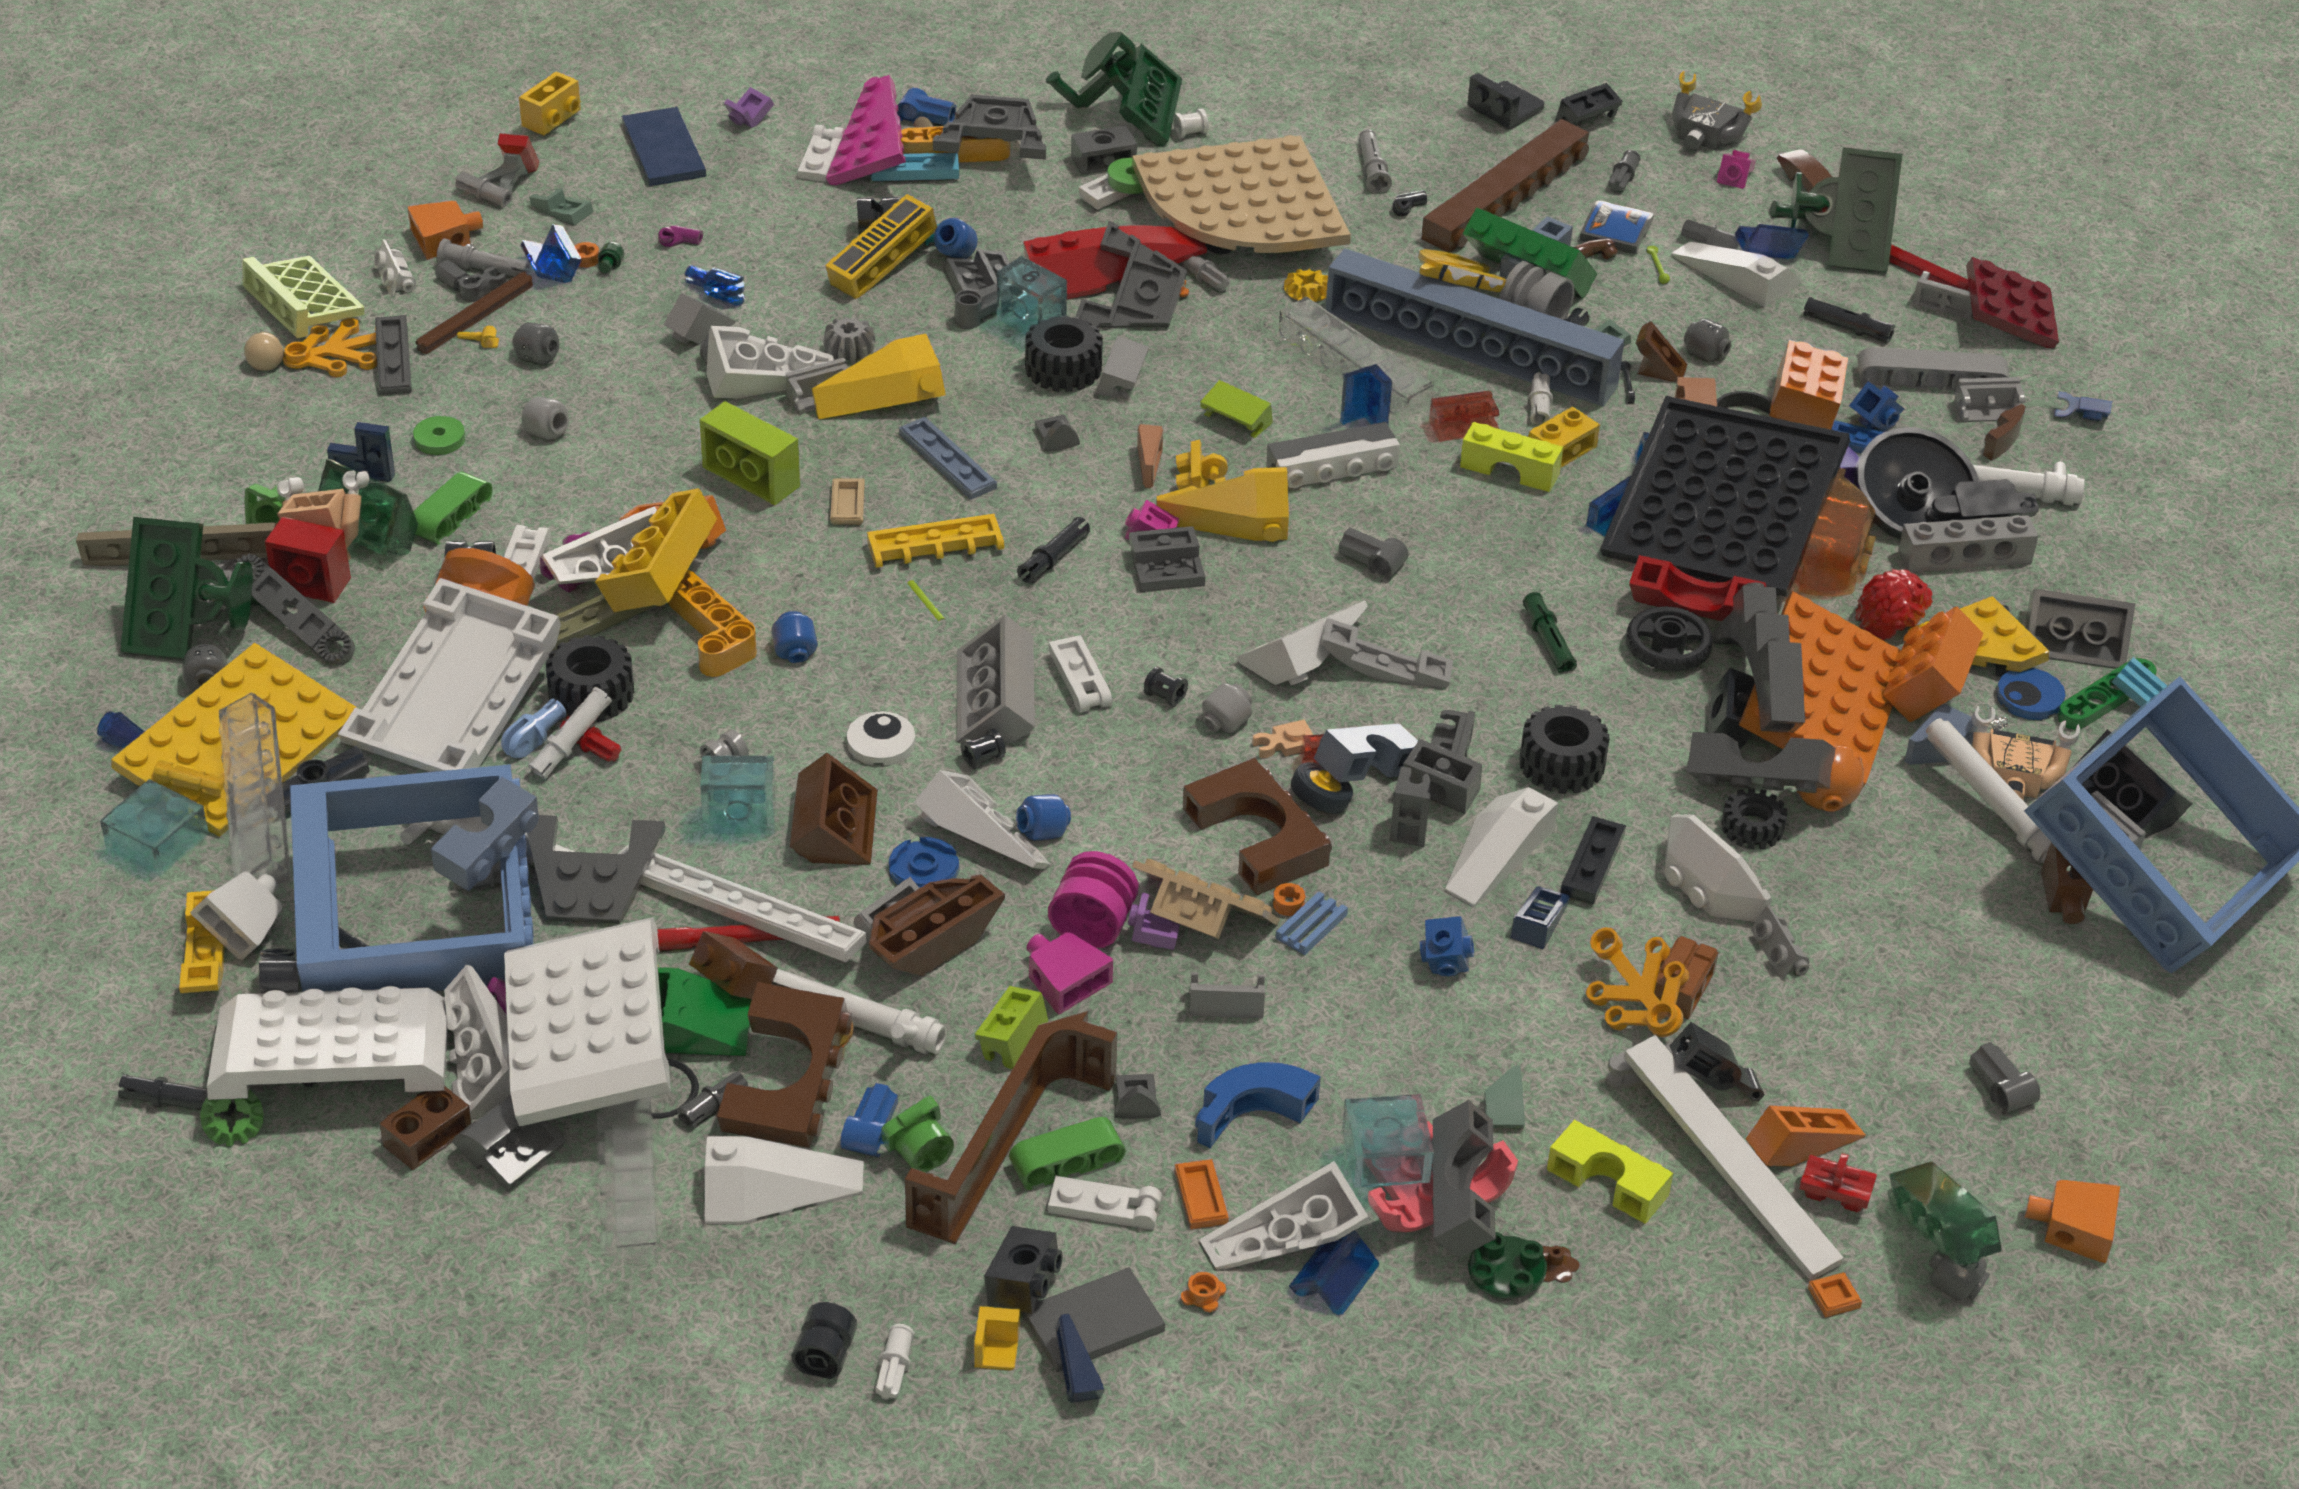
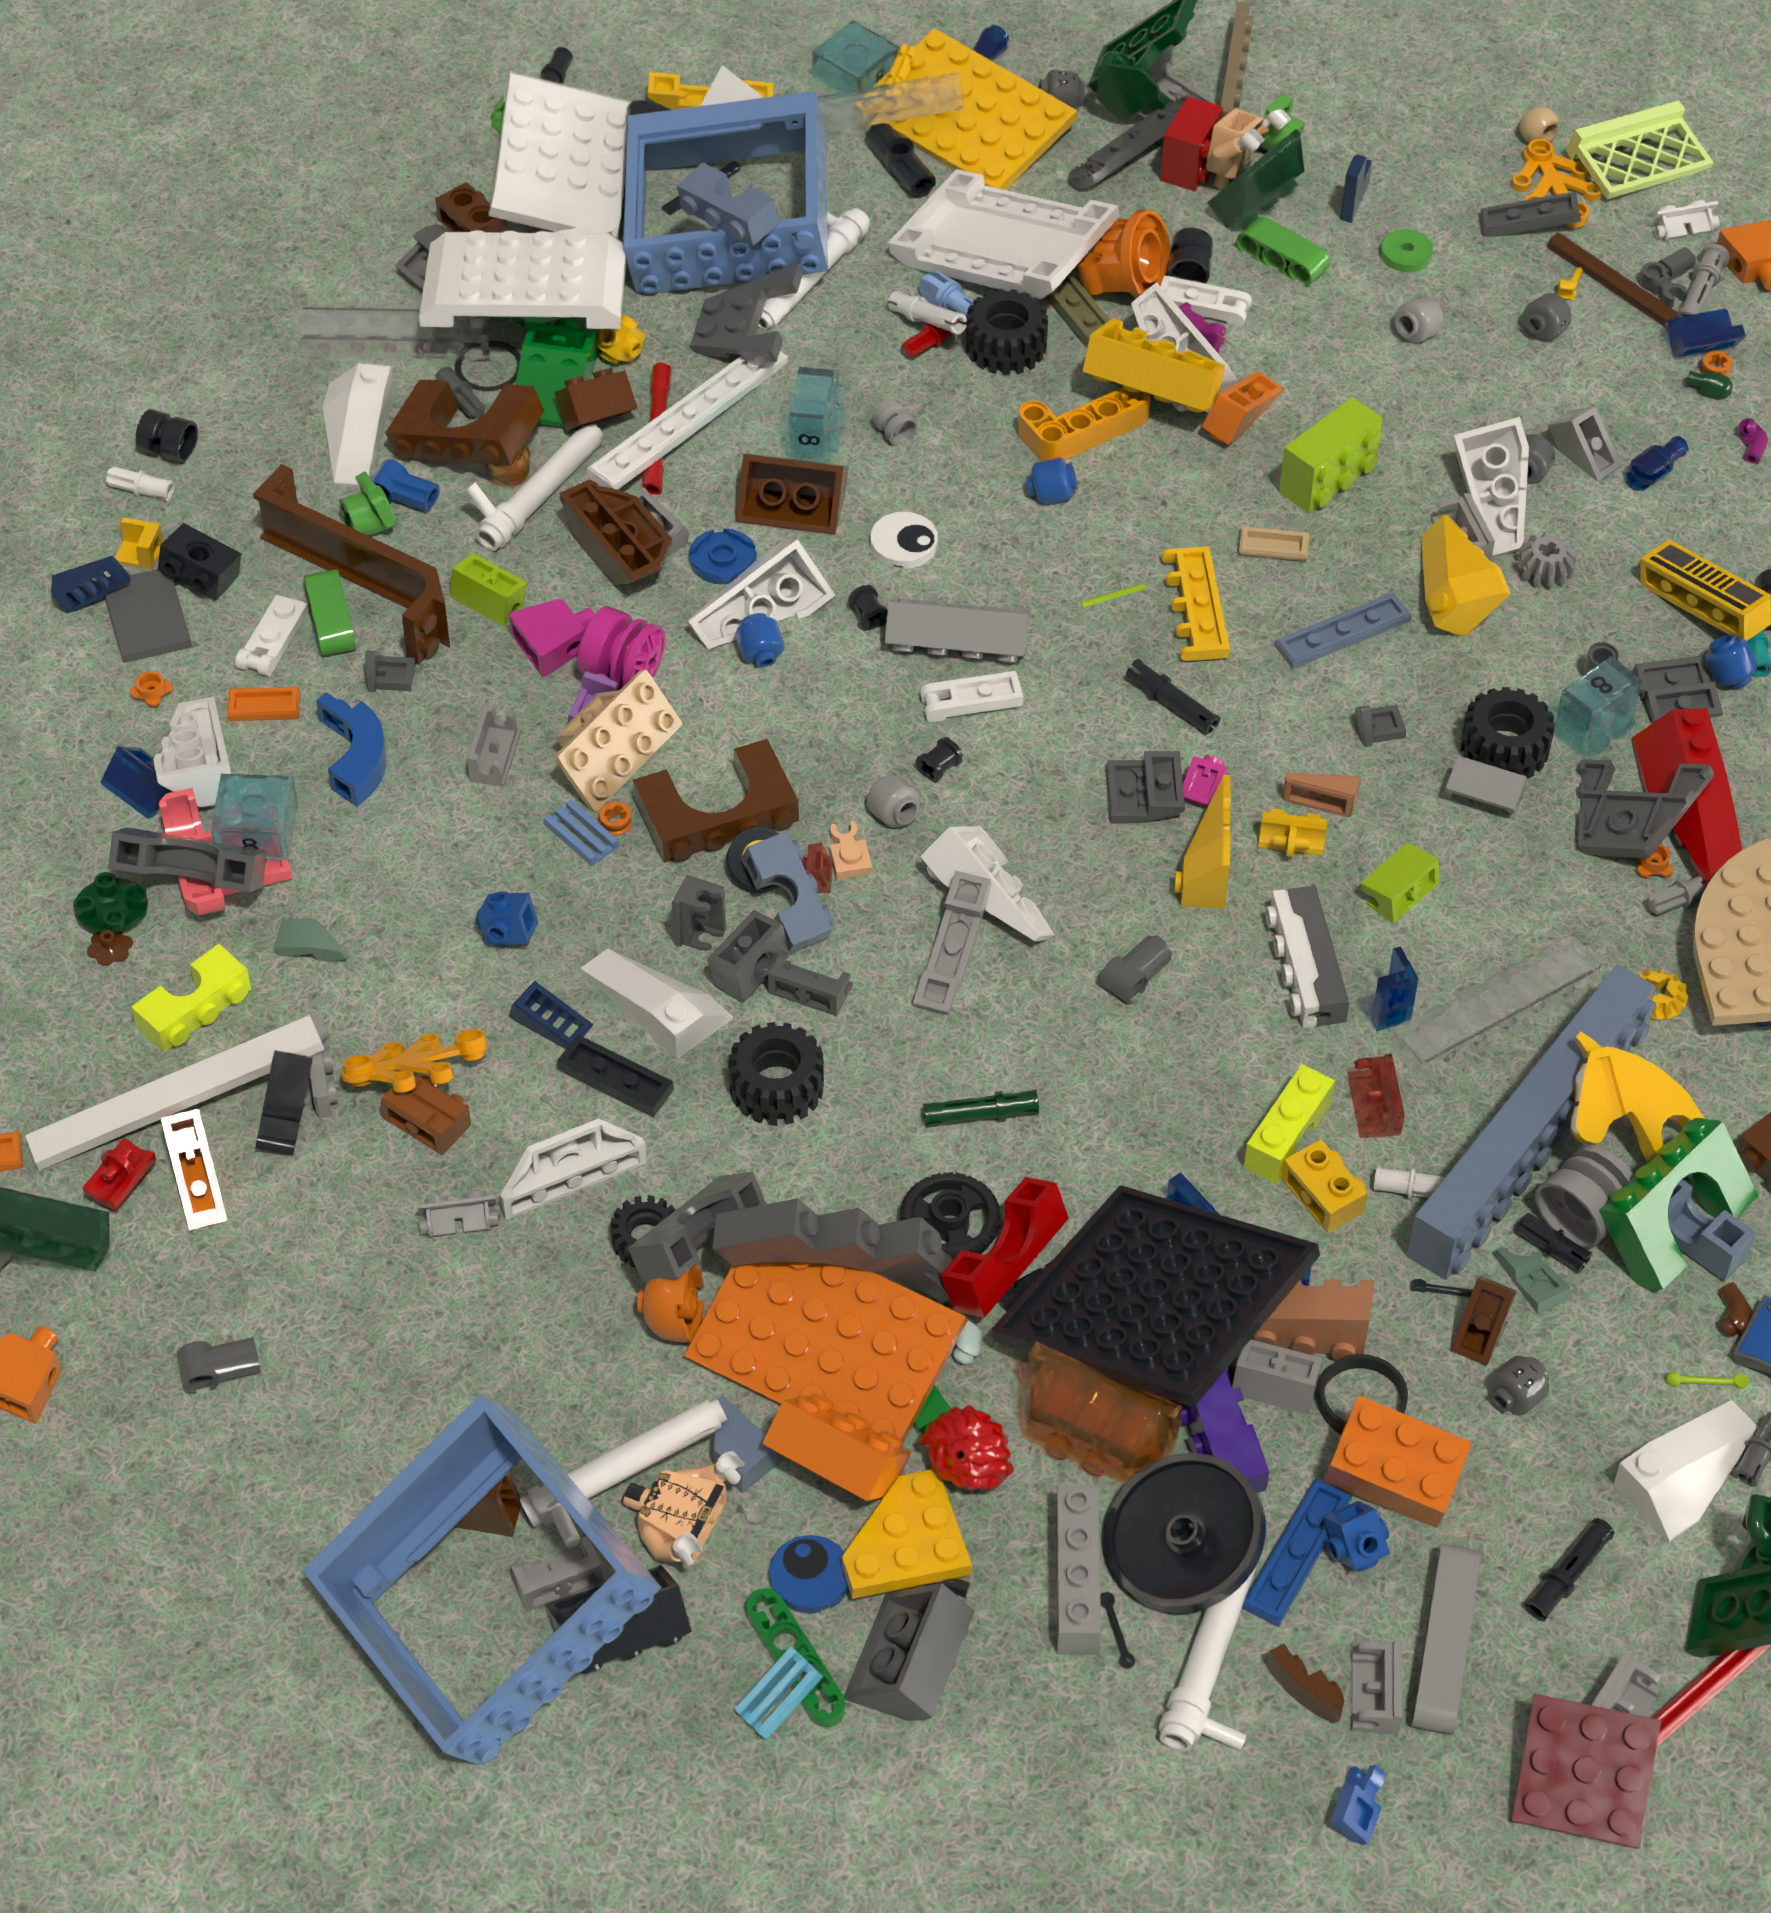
camera: 100 degrees right, 10 degrees up
(1771, 240) = (1732, 1490): clear blue panel -> none
(1981, 501) = (1132, 1593): black hinge -> none

